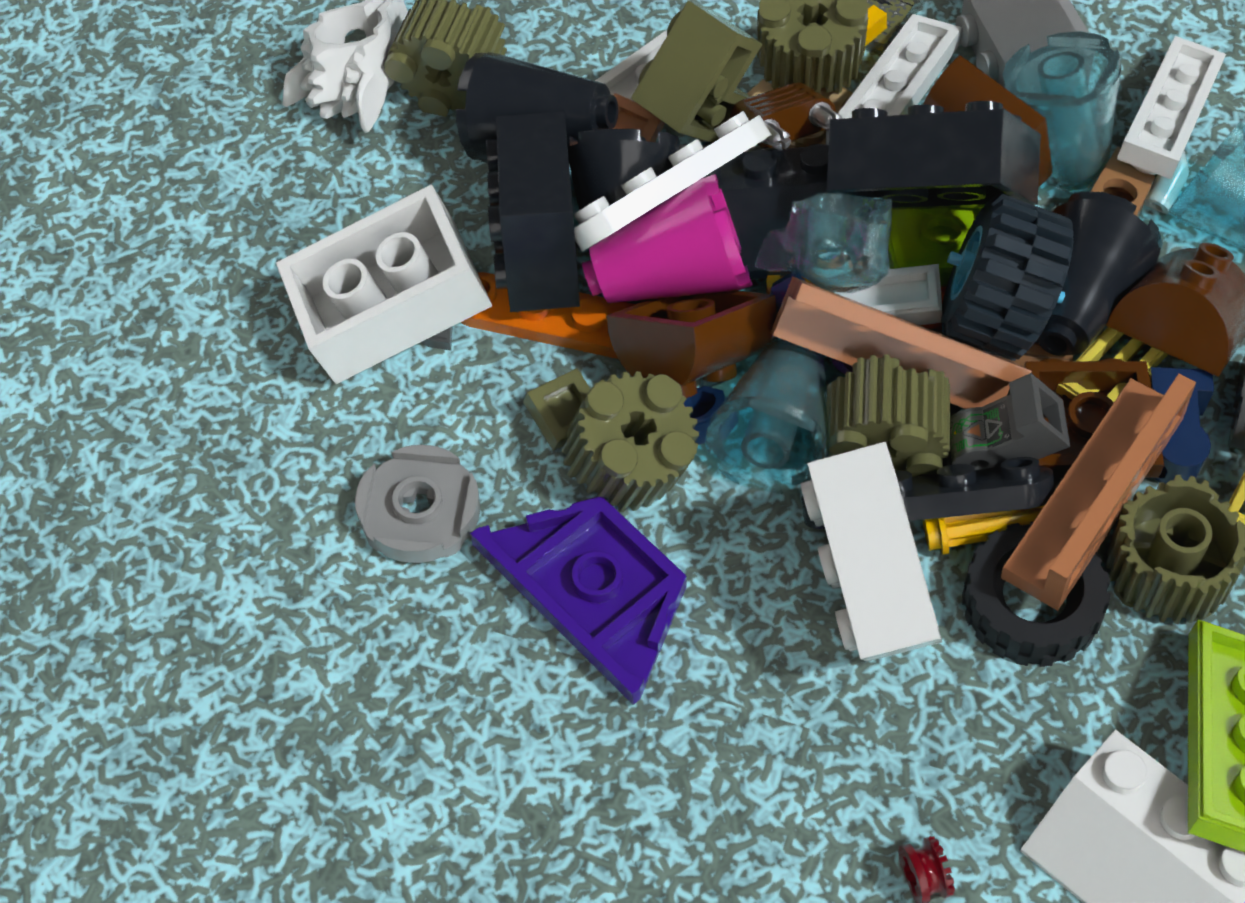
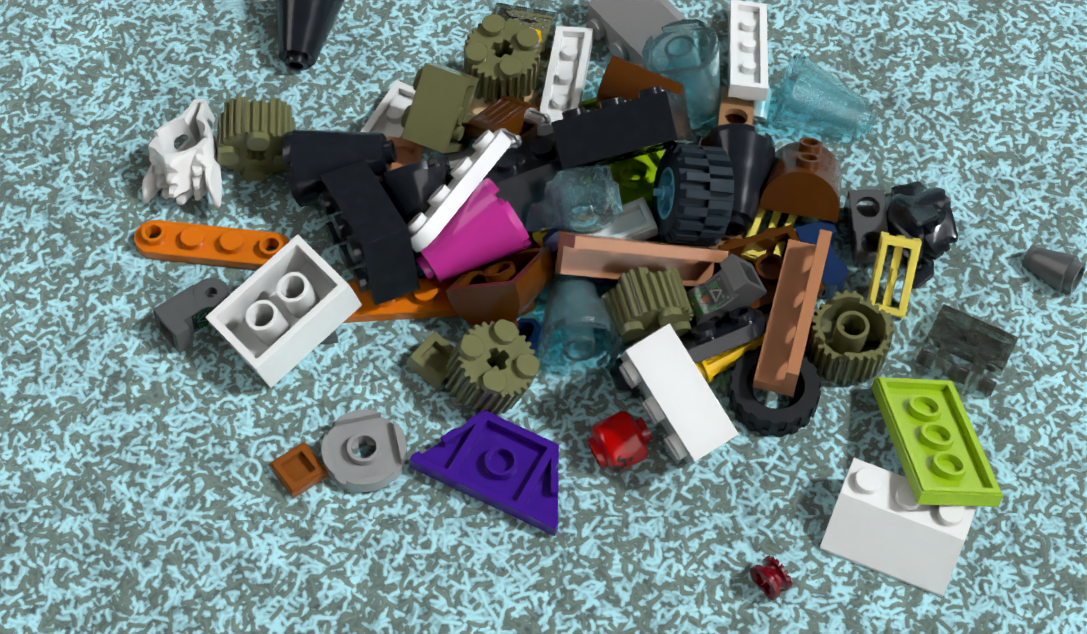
camera: 25 degrees left, 0 degrees up
(255, 251) = (187, 311): none -> dark grey leg
(322, 503) = (298, 470): none -> dark orange tile
(326, 172) = (207, 244): none -> orange plate
(776, 598) = (619, 441): none -> red head

